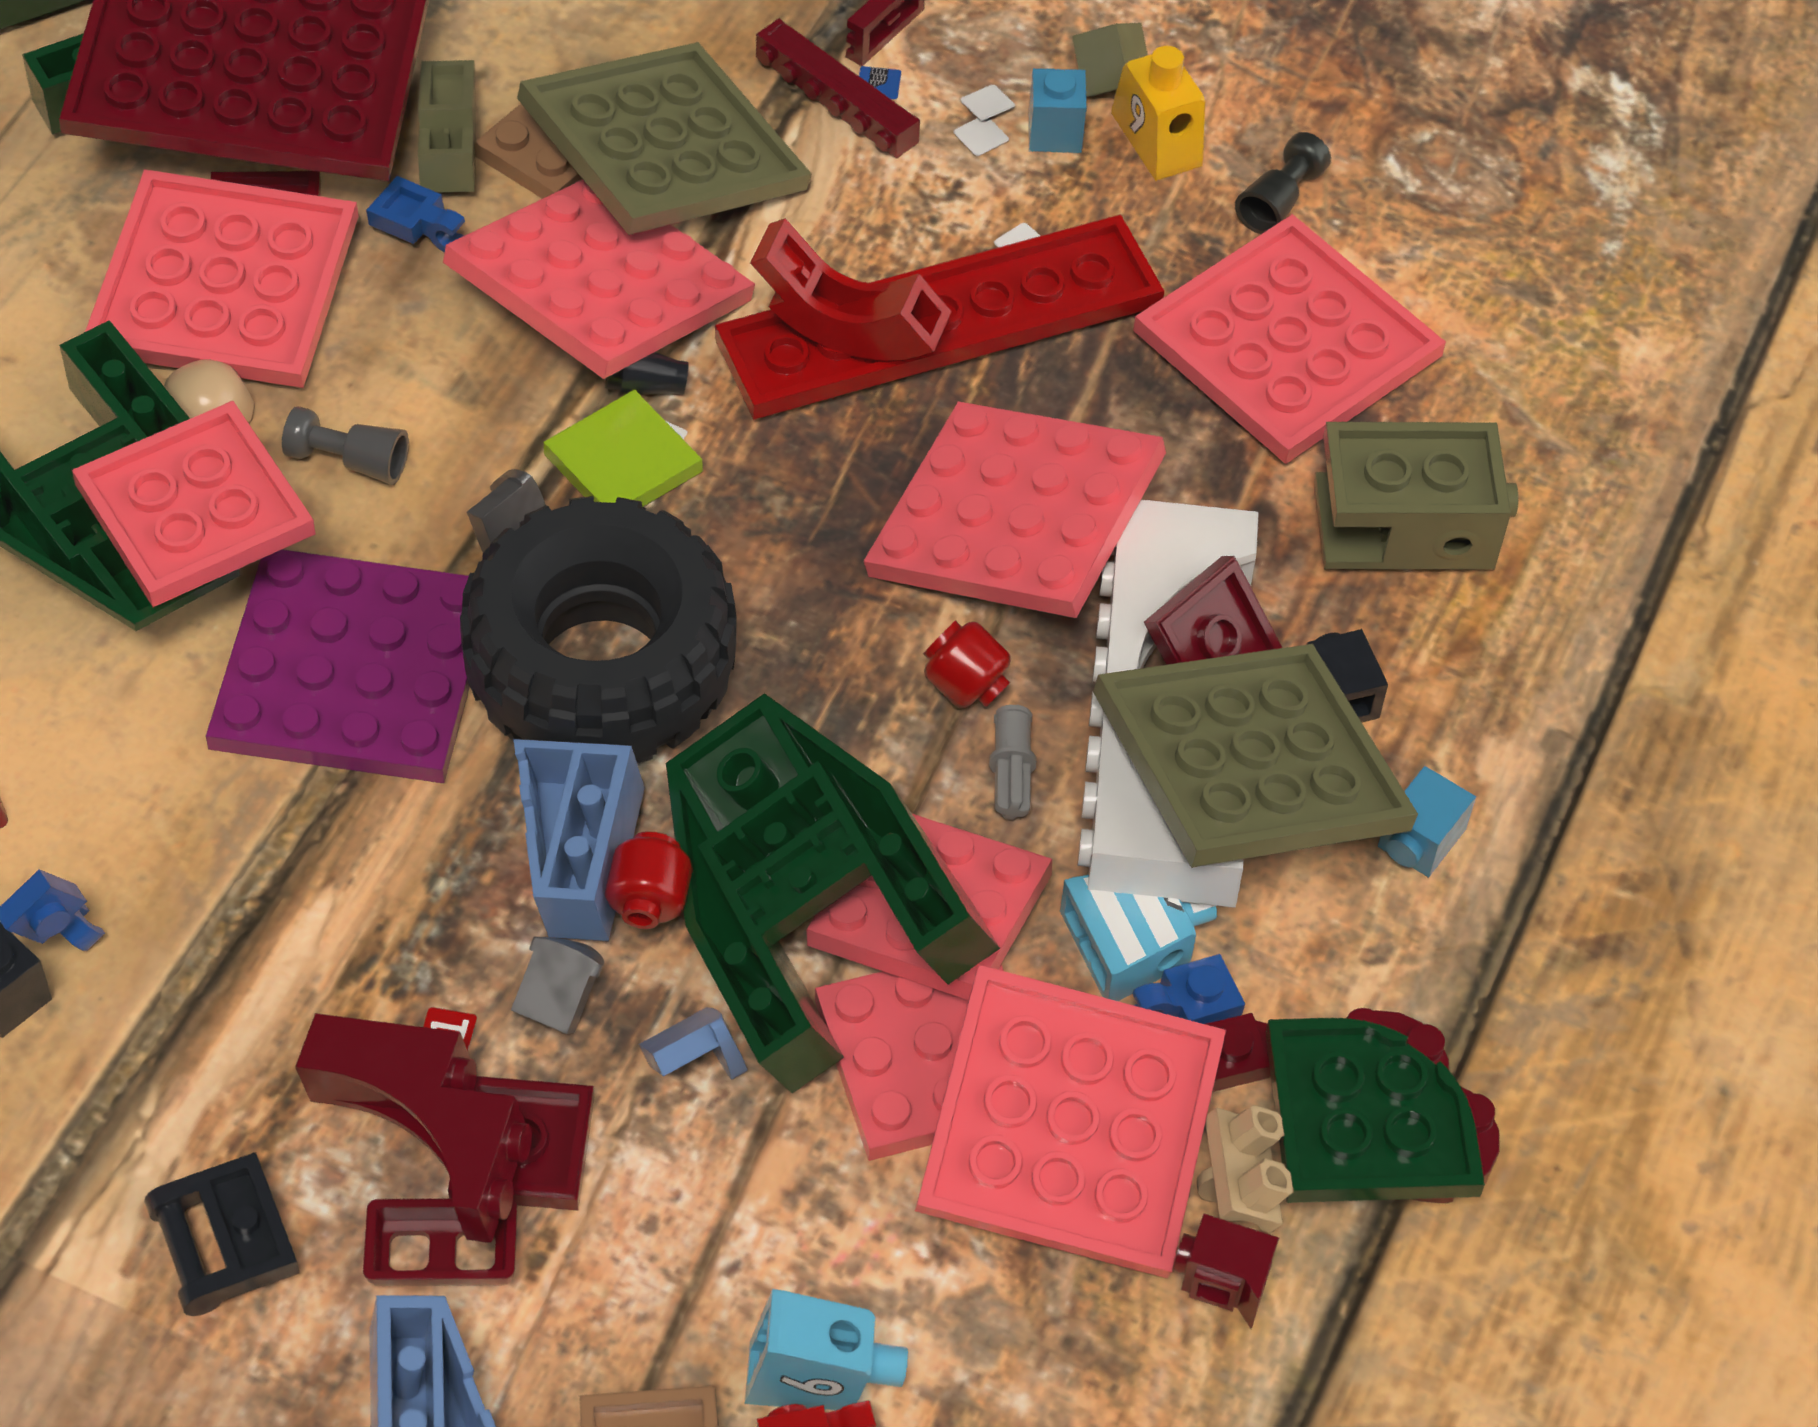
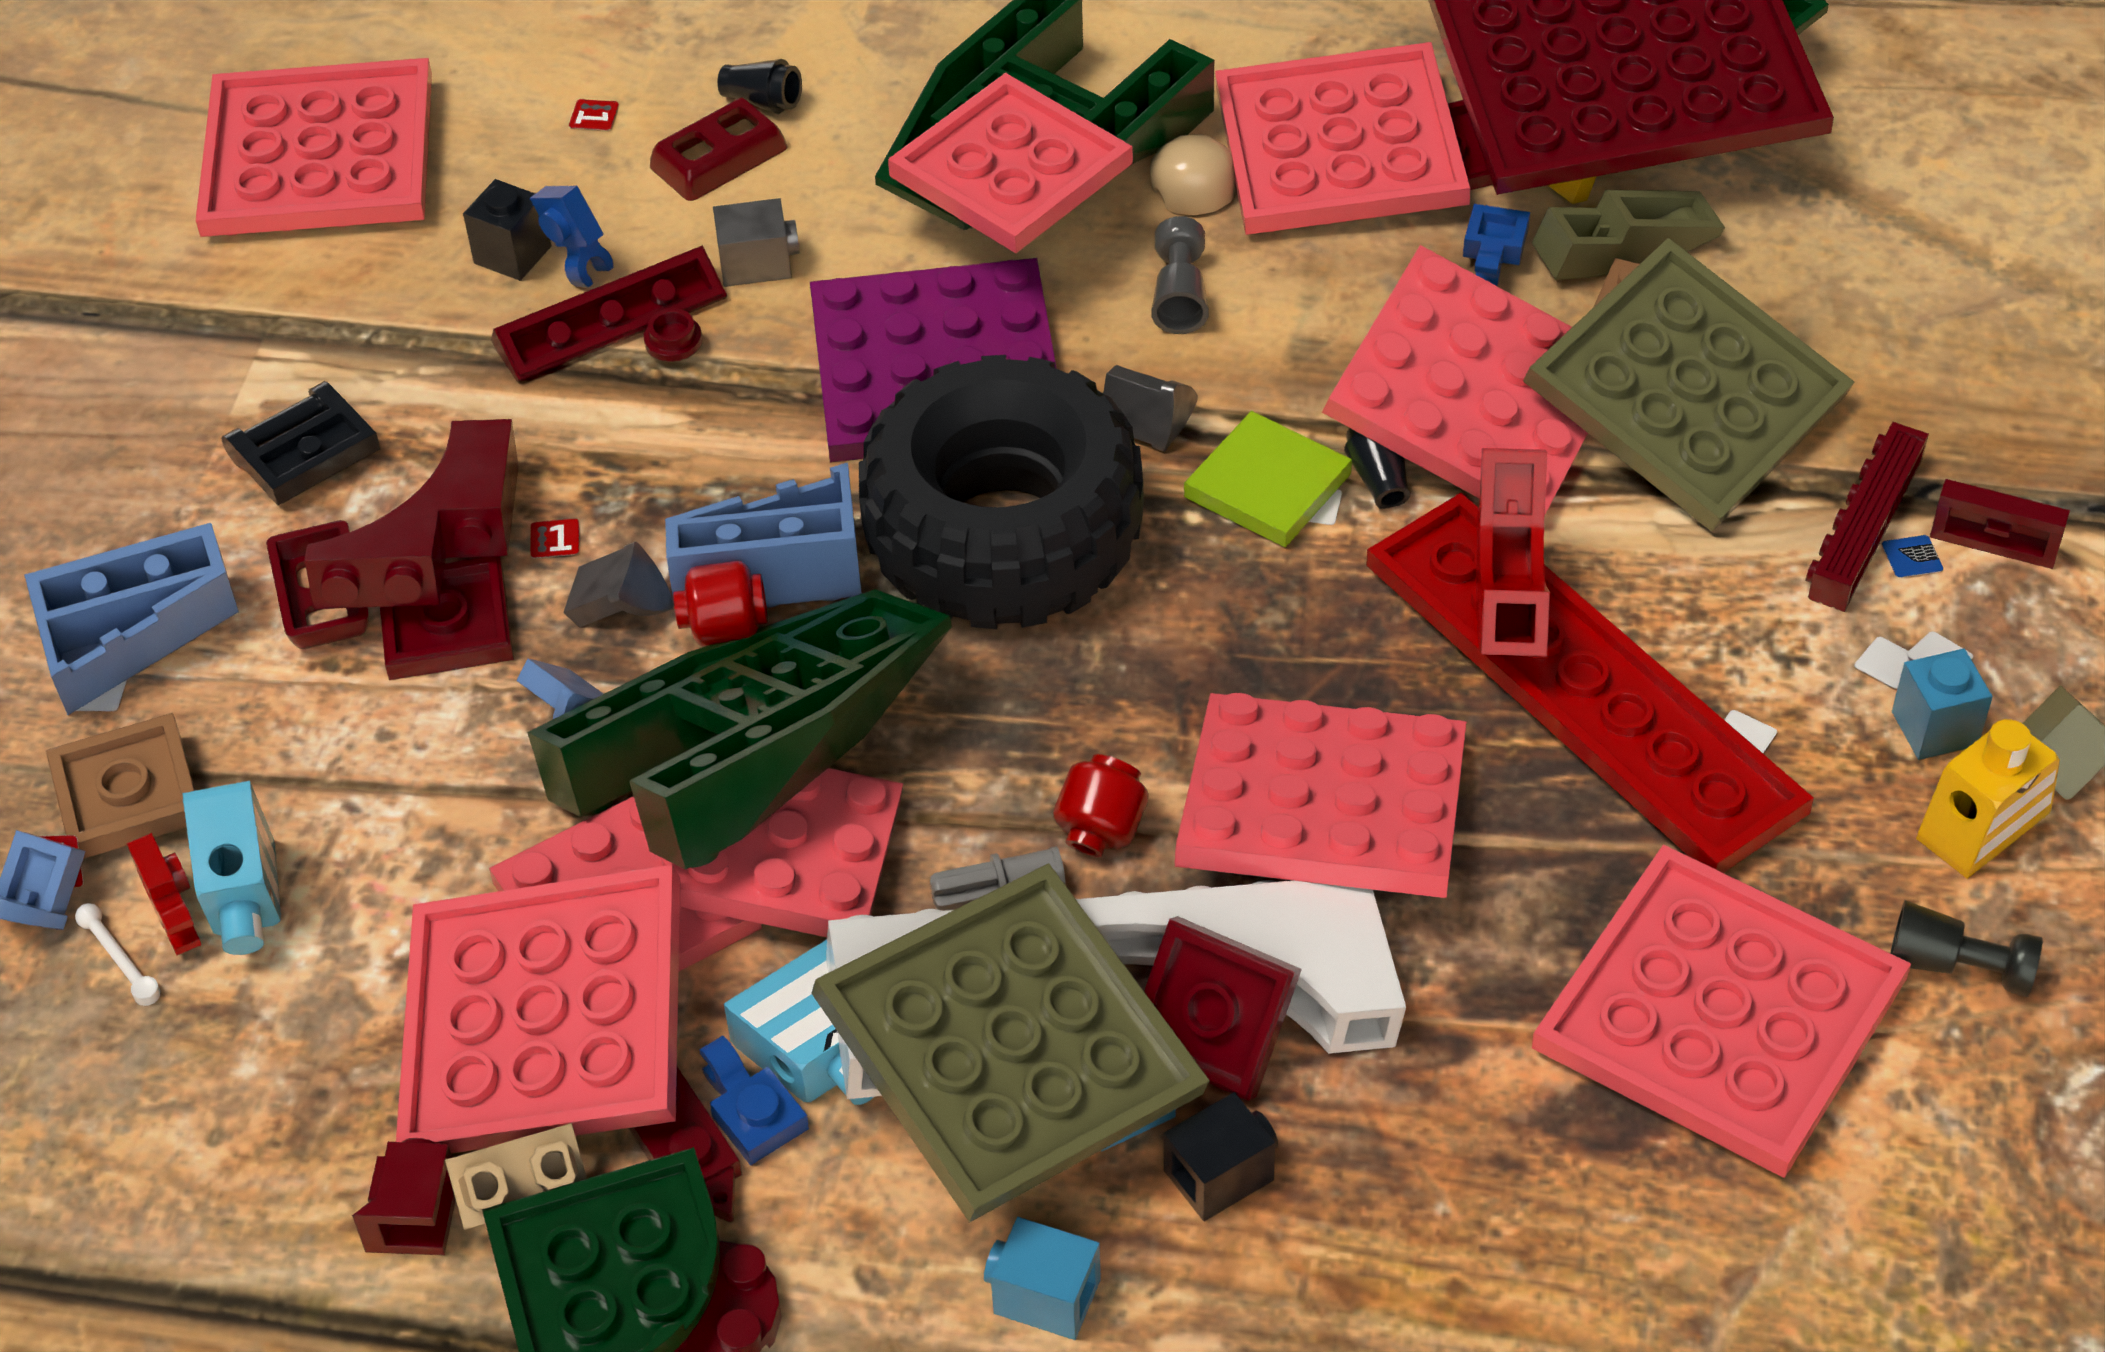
camera: 80 degrees right, 5 degrees down
(128, 769) = (754, 242): none -> flat silver brick
(154, 925) = (606, 314): none -> dark red slope
(222, 870) = (672, 335): none -> dark red plate
(1413, 495) = (1502, 1157): olive torso -> none

